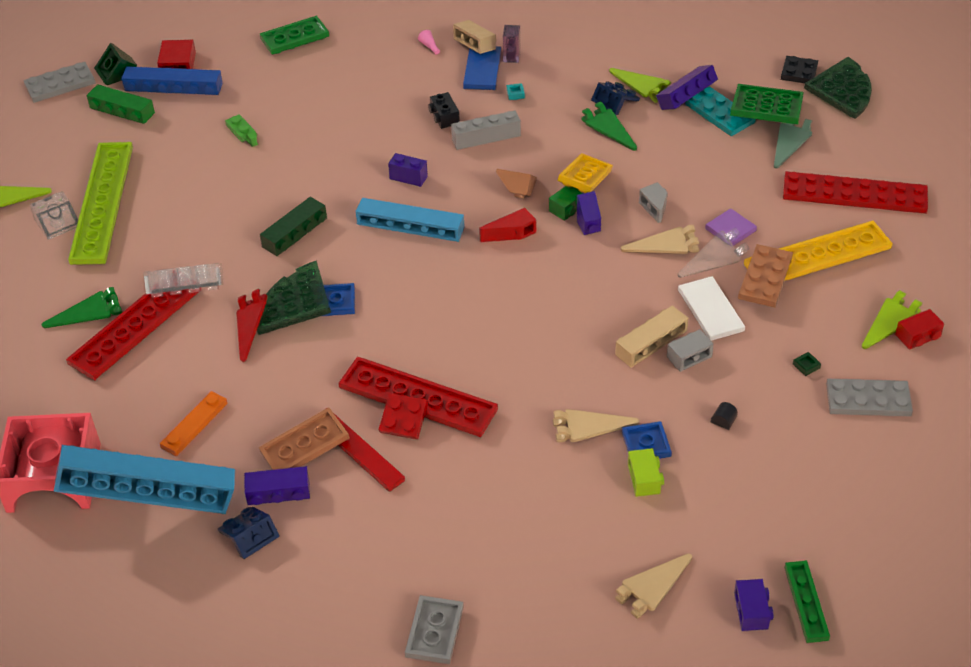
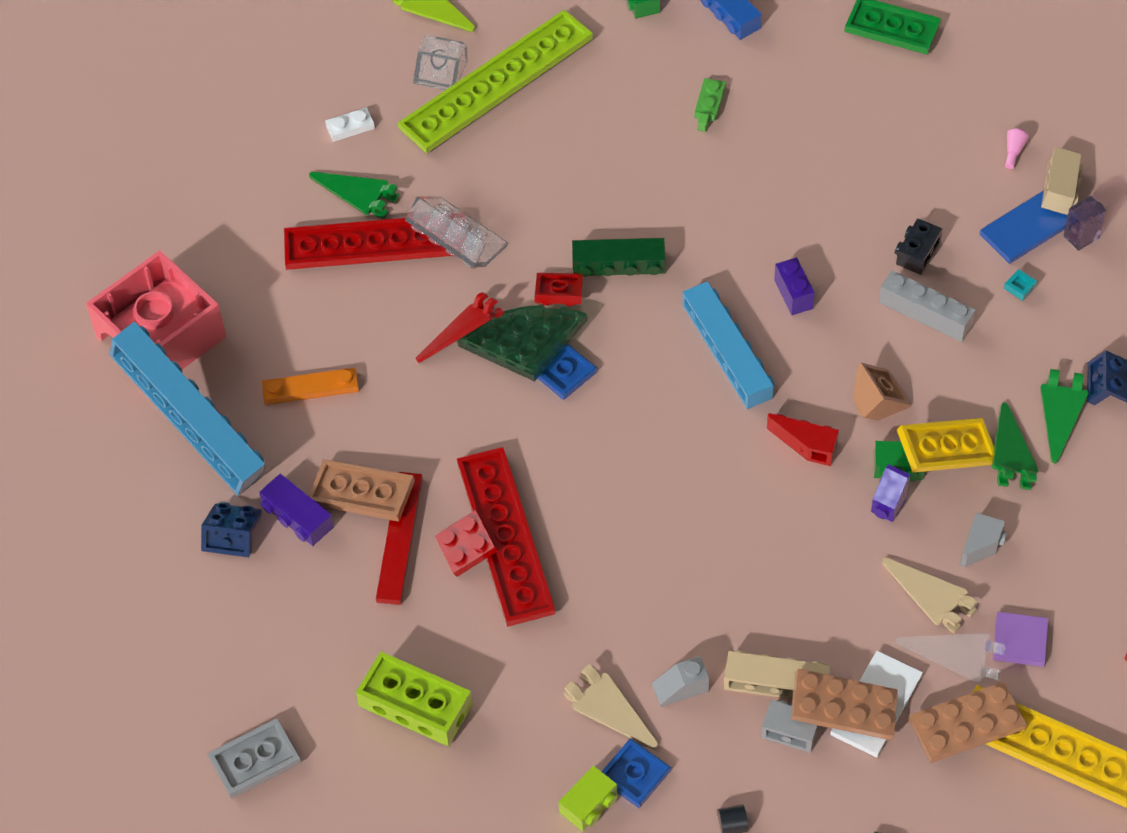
camera: 50 degrees right, 10 degrees up
(34, 284) = (349, 124): none -> white plate
(282, 262) = (558, 288): none -> red plate
(486, 511) = (414, 698): none -> lime brick
(610, 378) = (682, 682): none -> light grey slope
(614, 158) = (1011, 452): none -> green flag
(703, 315) = (844, 704): none -> nougat plate

